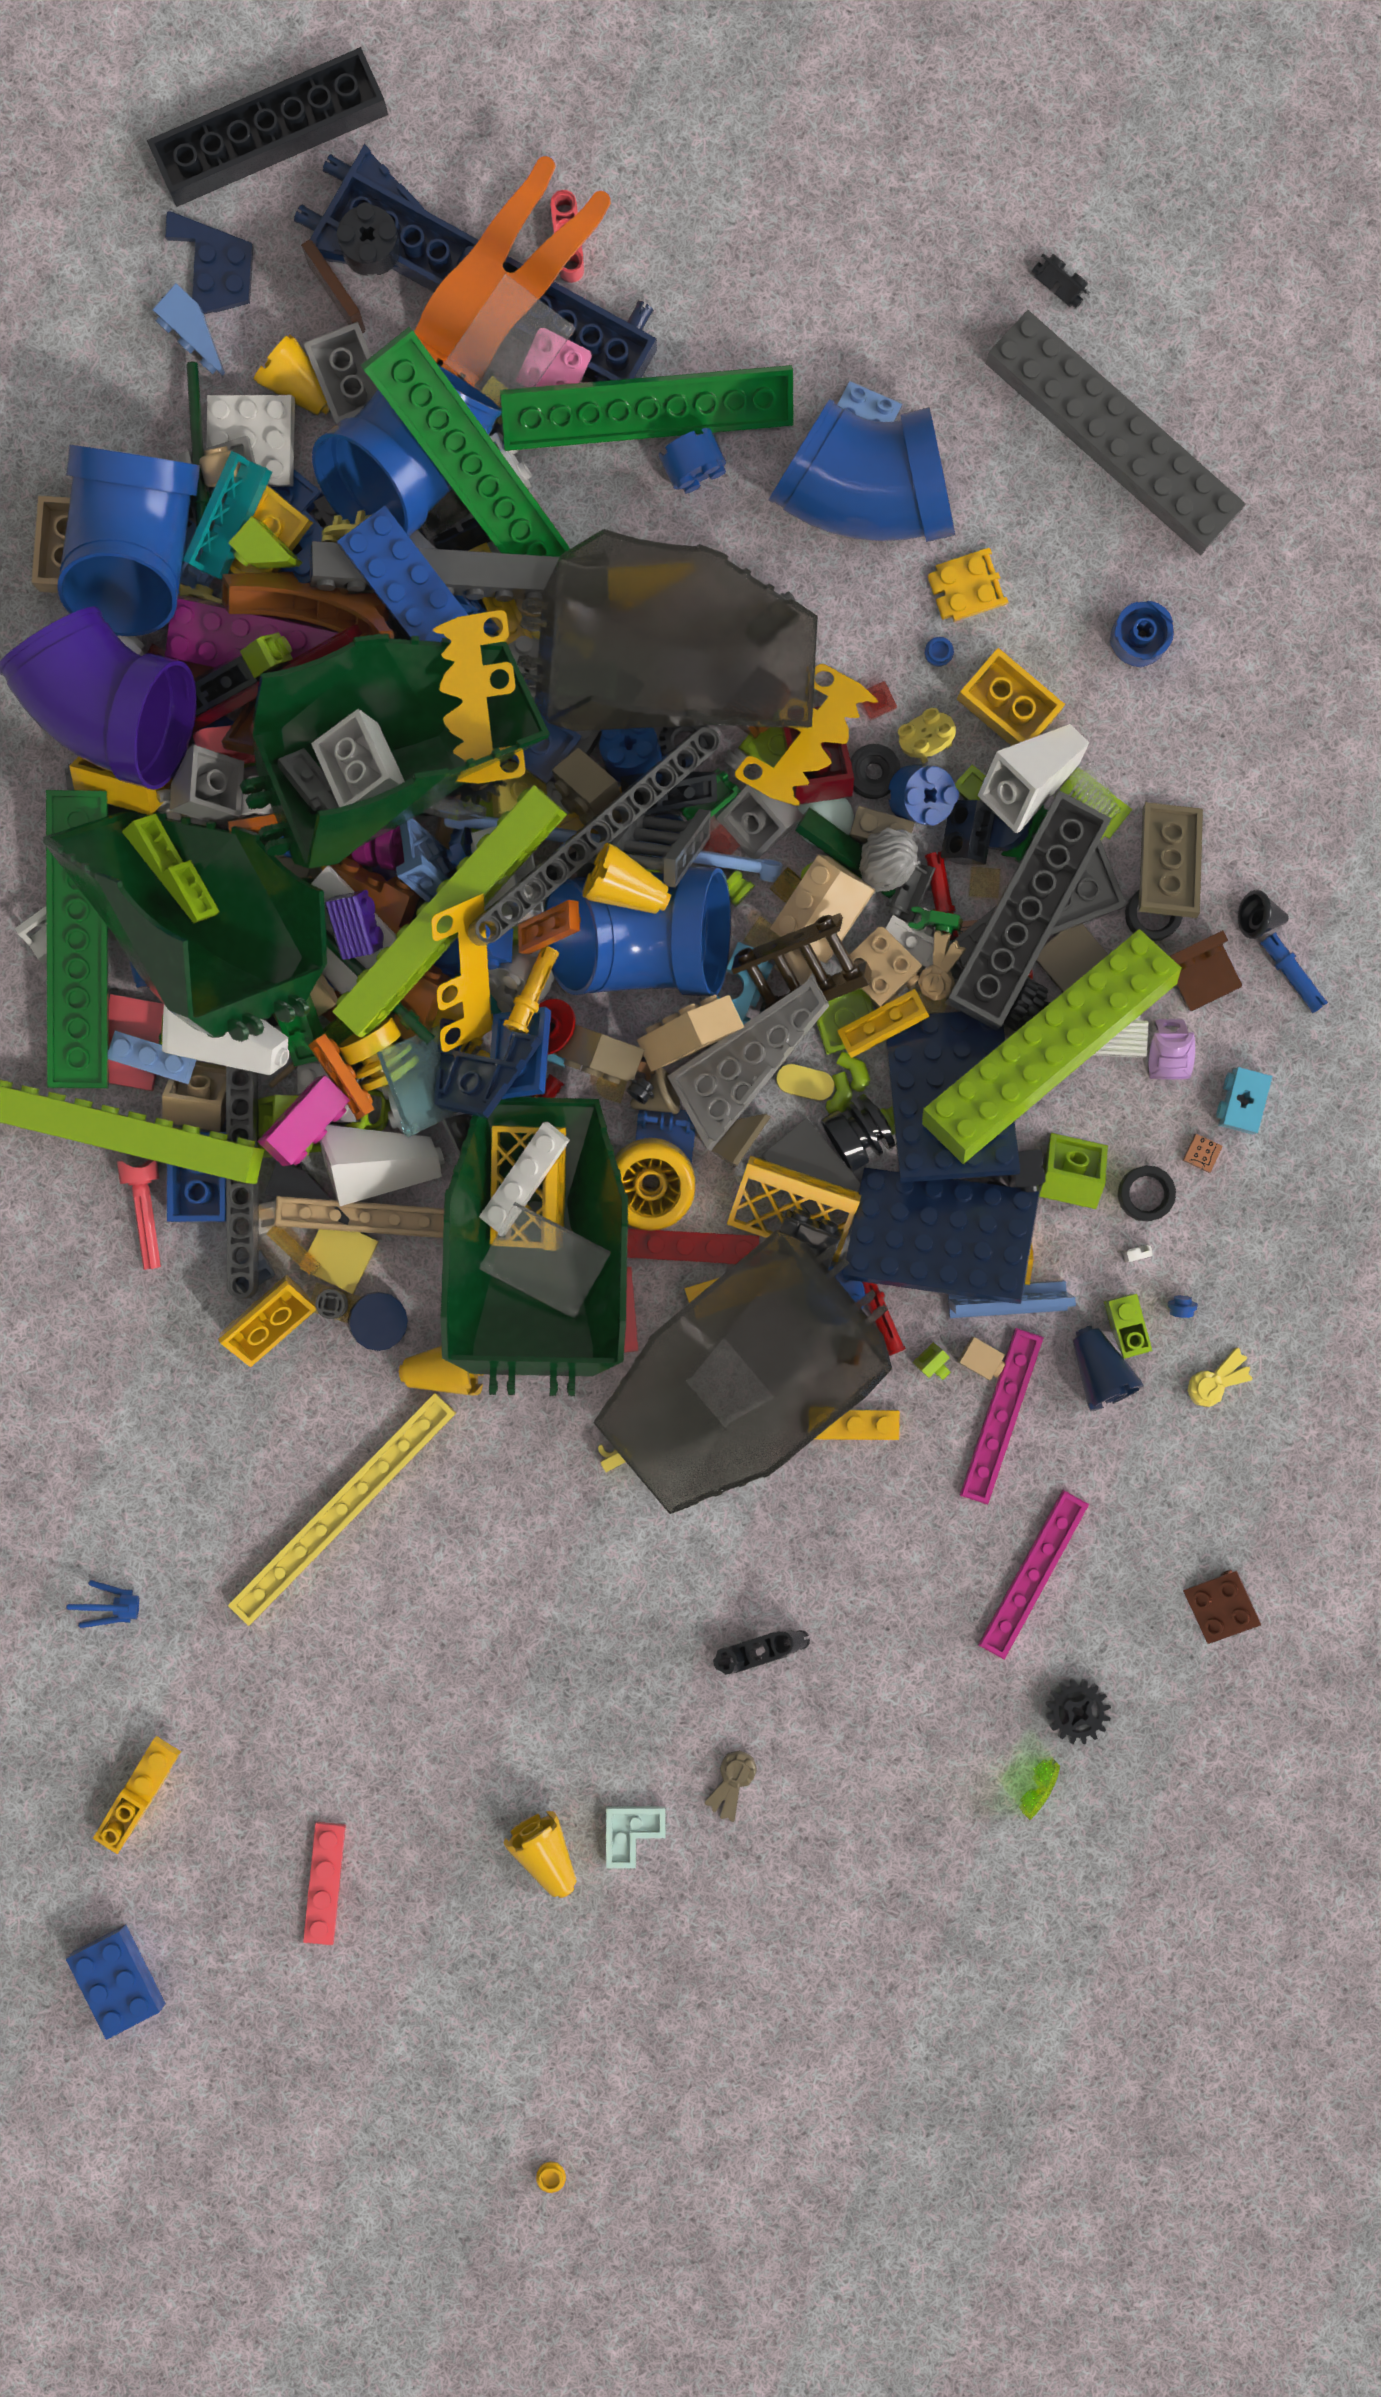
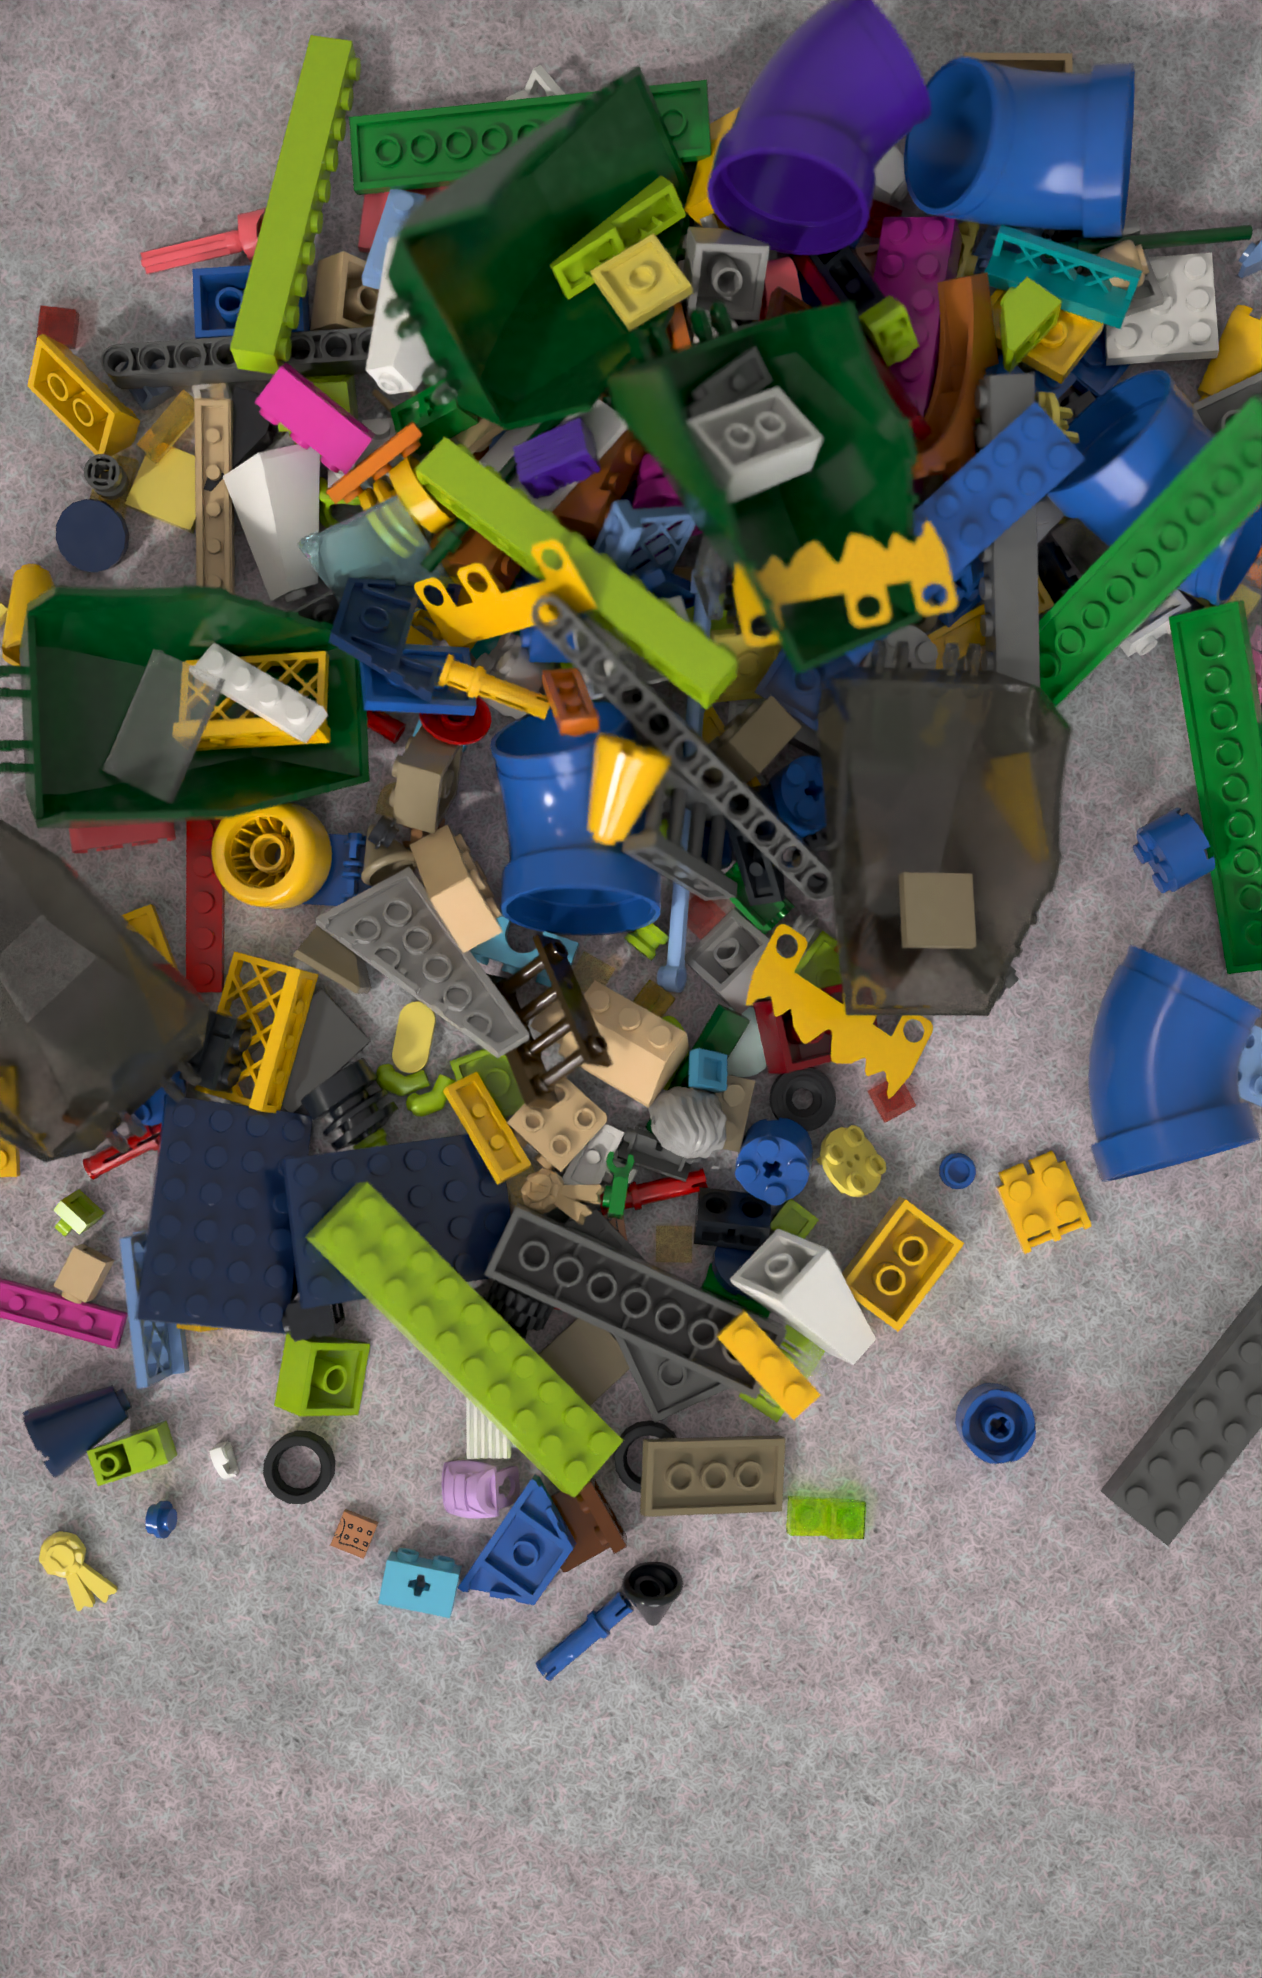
camera: 90 degrees right, 0 degrees up
(201, 1341) = (59, 324): none -> clear red plate
(212, 849) = (641, 282): none -> light yellow tile
(731, 650) = (937, 910): none -> dark tan tile
(848, 841) = (708, 1070): none -> dark azure plate
(1085, 806) = (768, 1365): none -> yellow plate
(1209, 774) = (826, 1517): none -> clear neon green slope
(1222, 1016) = (523, 1549): none -> blue wing

